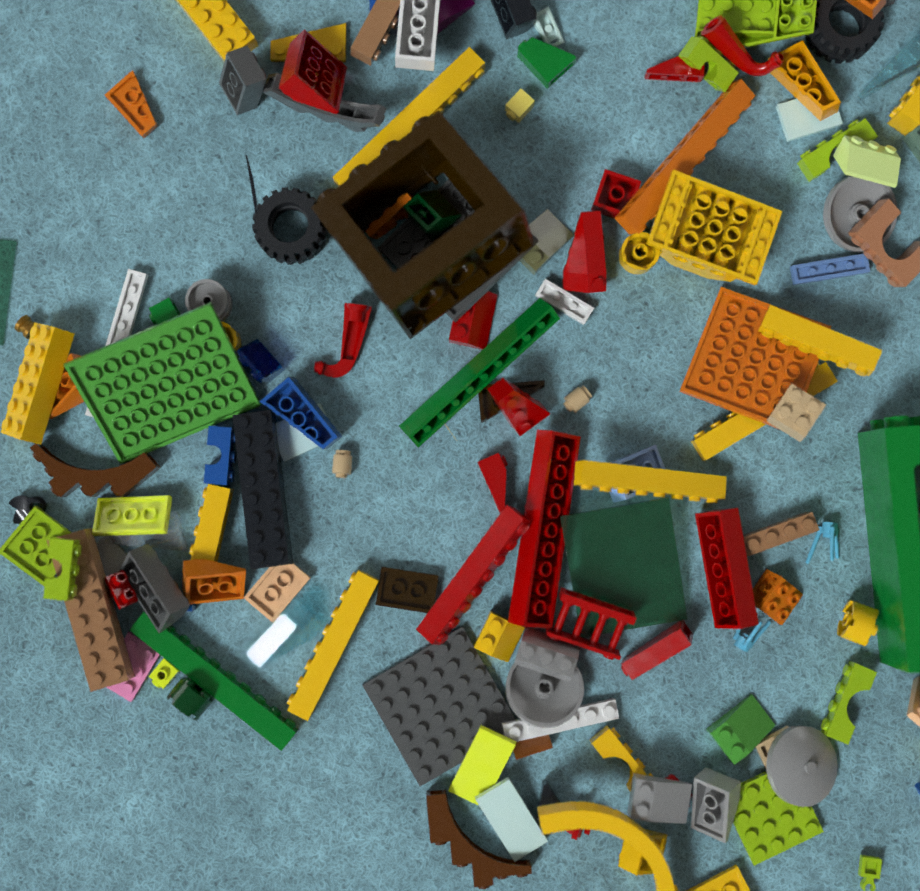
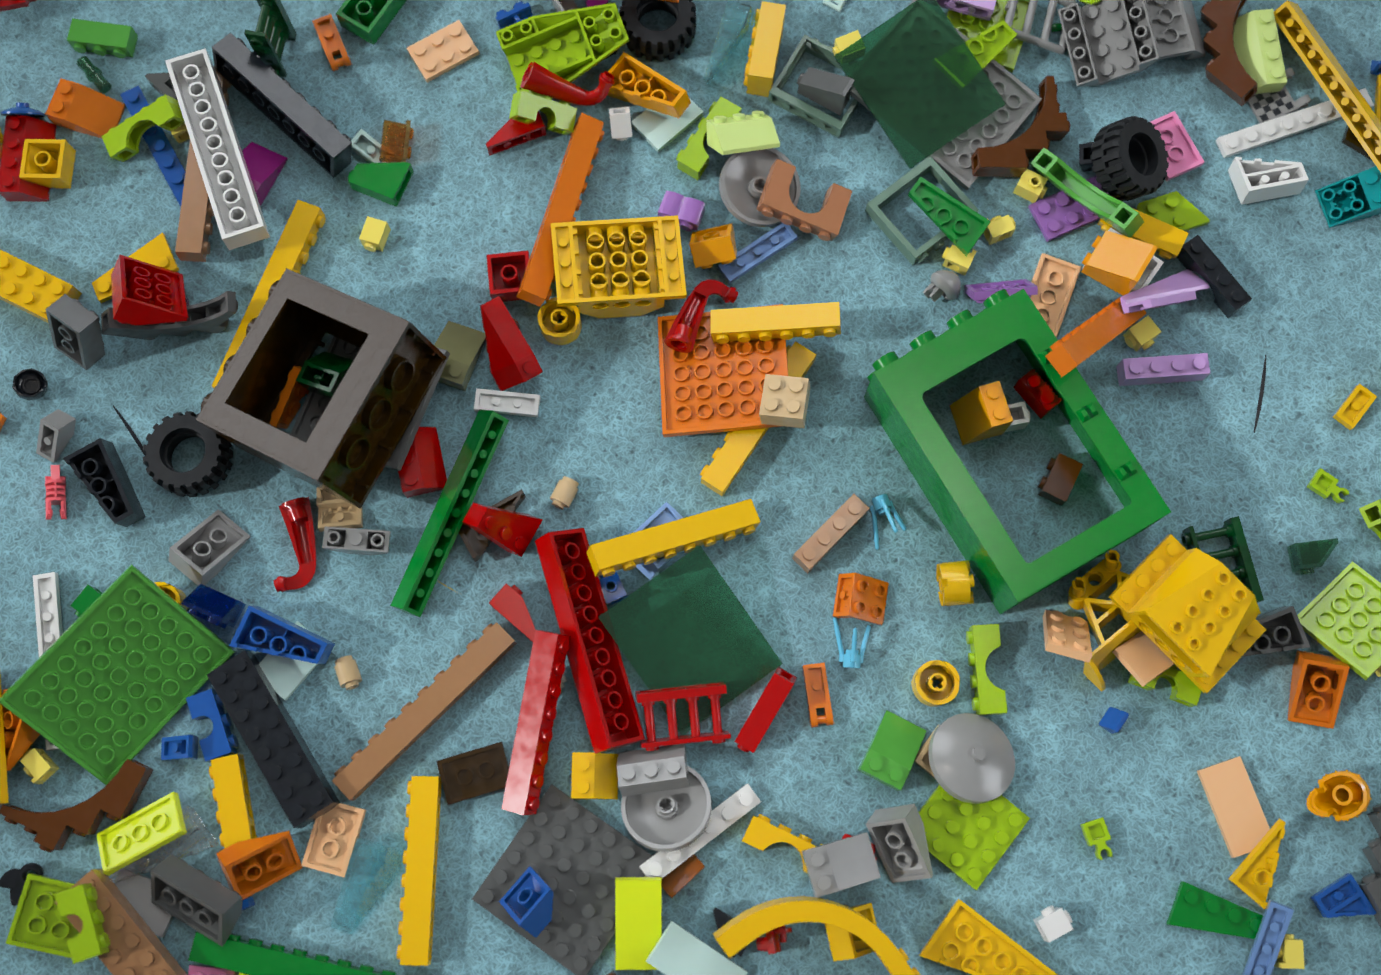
camera: 30 degrees left, 10 degrees down
(74, 423) = (38, 765): none -> light yellow brick
(121, 589) = (160, 918): red hips -> none
(172, 207) = (55, 492): none -> coral hinge
(187, 106) = (30, 384): none -> black hair
(187, 461) = (179, 747): none -> blue slope
(190, 158) = (55, 434): none -> light grey slope
(206, 290) = (133, 554): light grey wheel -> none
(217, 218) = (107, 480): none -> black wedge
(274, 310) = (207, 548): none -> light grey slope
(387, 330) = (336, 512): none -> tan slope
(389, 523) = (423, 712): none -> medium nougat brick
(395, 361) = (356, 540): none -> light grey slope
(406, 711) = (529, 902): none -> blue slope
(571, 31) = (395, 141): none -> clear orange bracket
(580, 502) = (615, 595): none -> blue brick
(703, 656) = (817, 694): none -> orange plate
(726, 569) = (795, 590): red brick -> none
(742, 307) = (686, 324): none -> red animal
(768, 102) = (620, 123): none -> white brick
(783, 199) = (688, 210): none -> medium lavender brick
(796, 247) = (713, 246): none -> light orange slope
(810, 701) = (923, 680): none -> yellow brick

